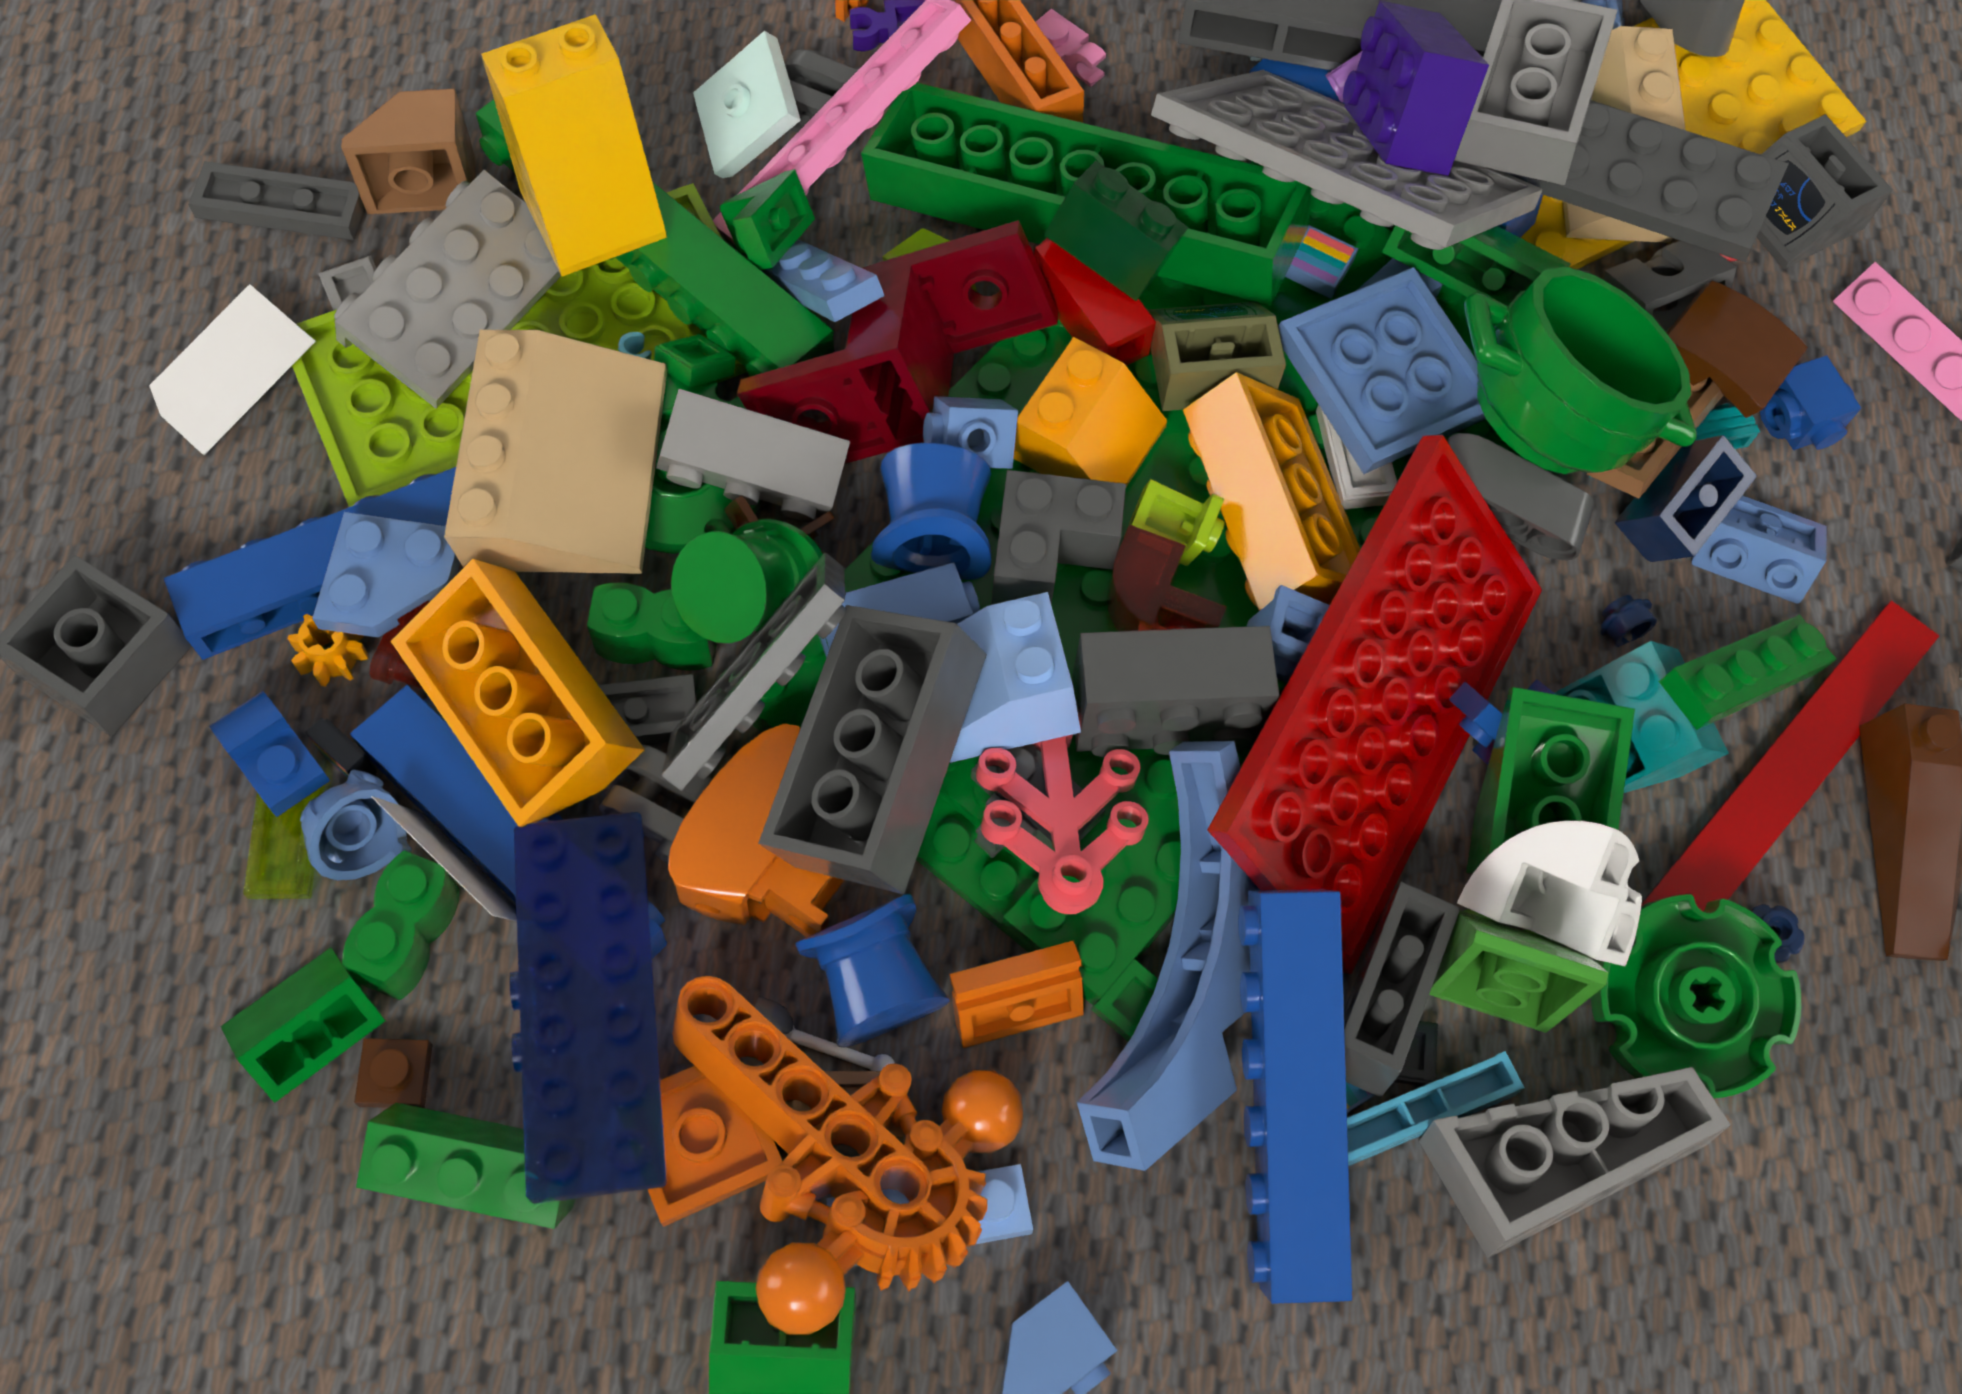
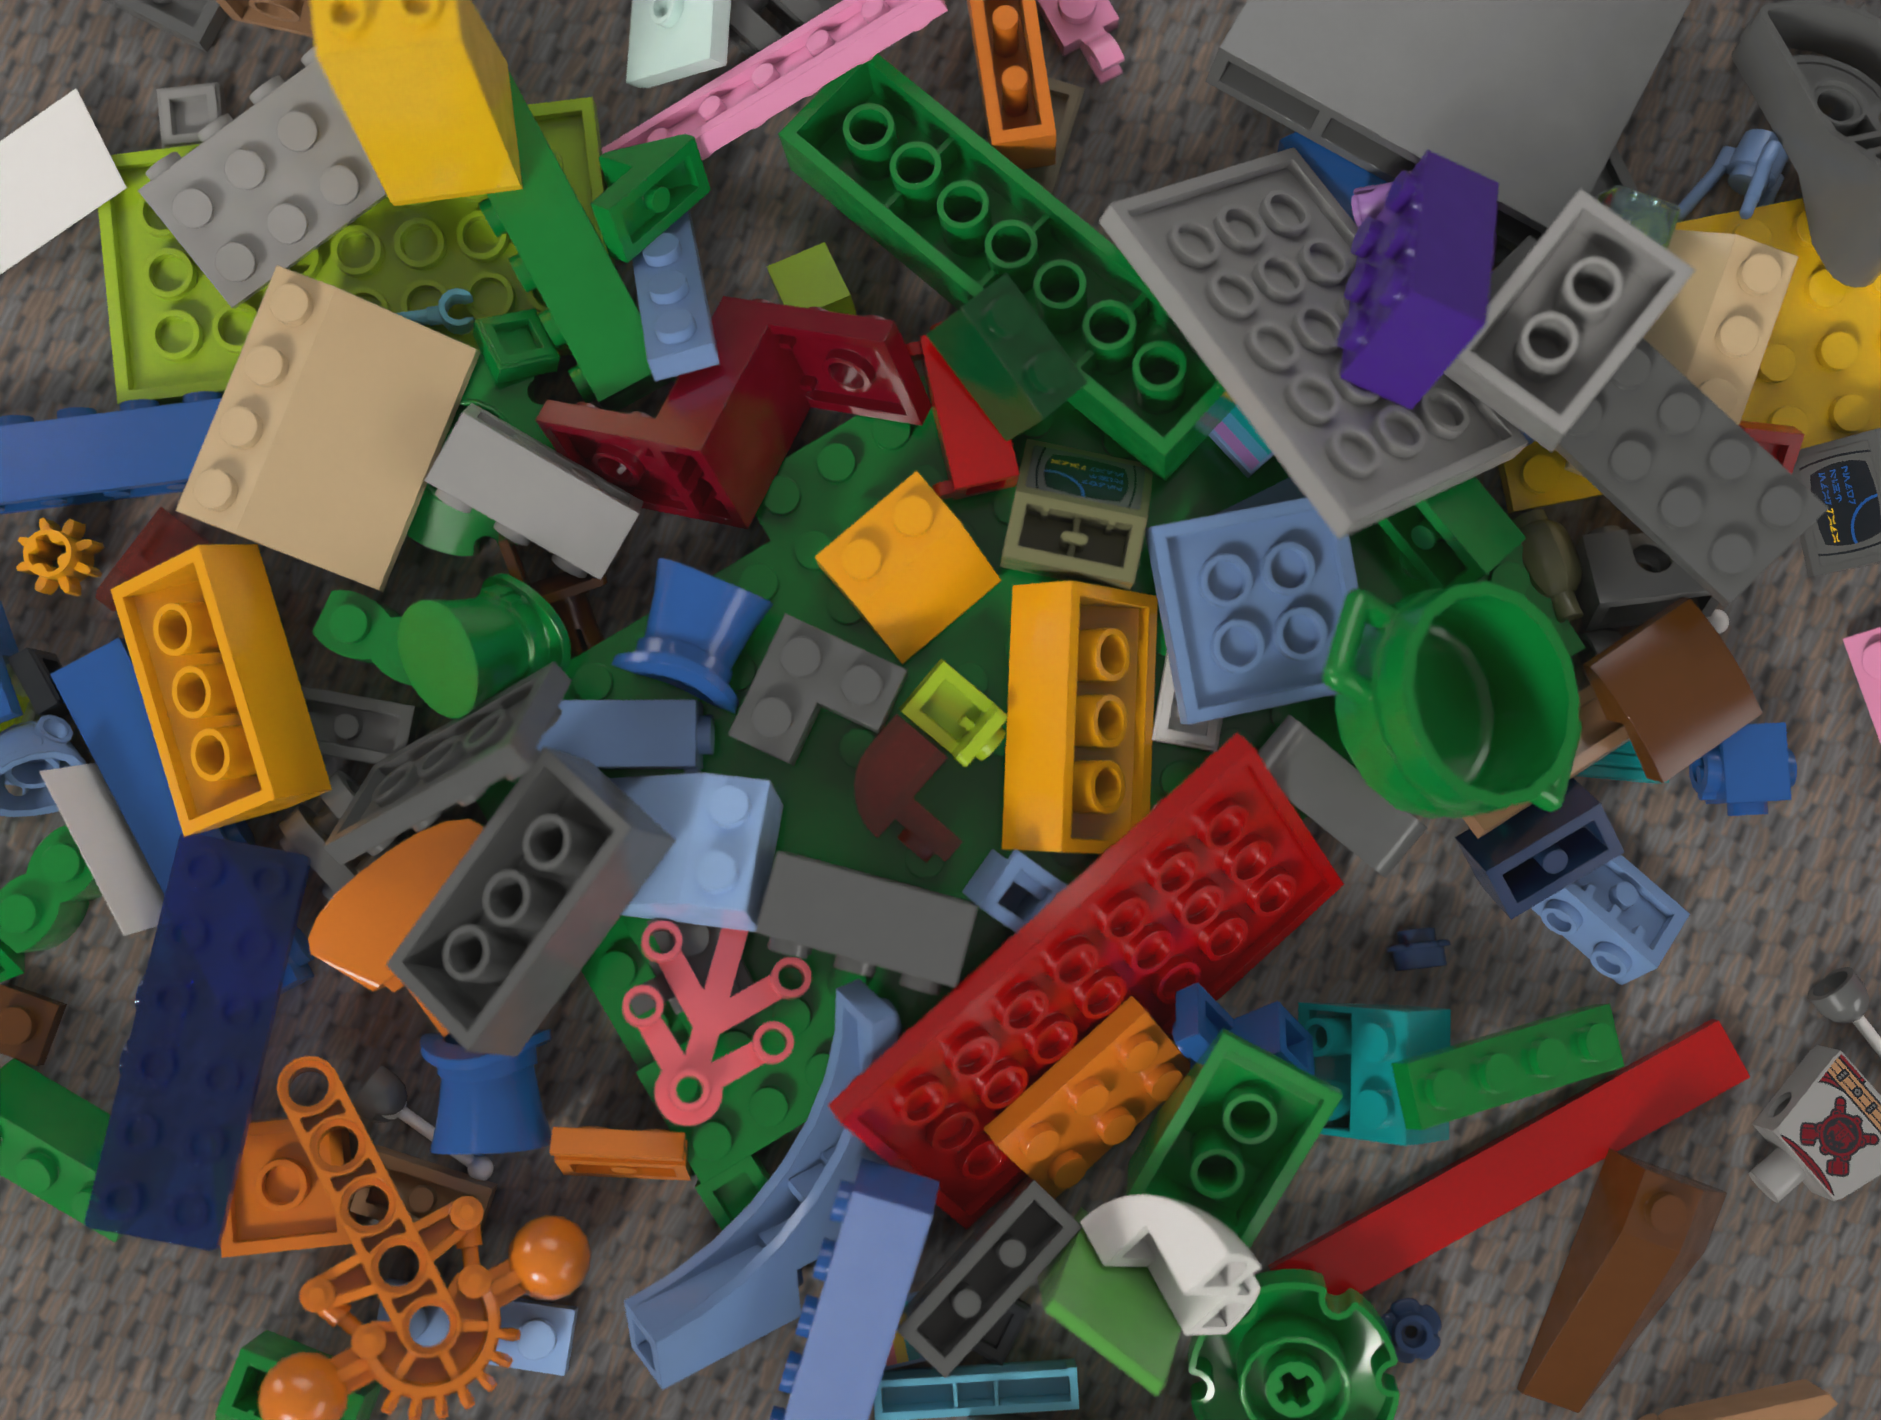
camera: 25 degrees right, 20 degrees up
(381, 573) = (118, 507): medium blue plate -> none
(975, 425) = (769, 547): medium blue brick -> none
(1416, 805) = (1090, 1099): none -> orange plate

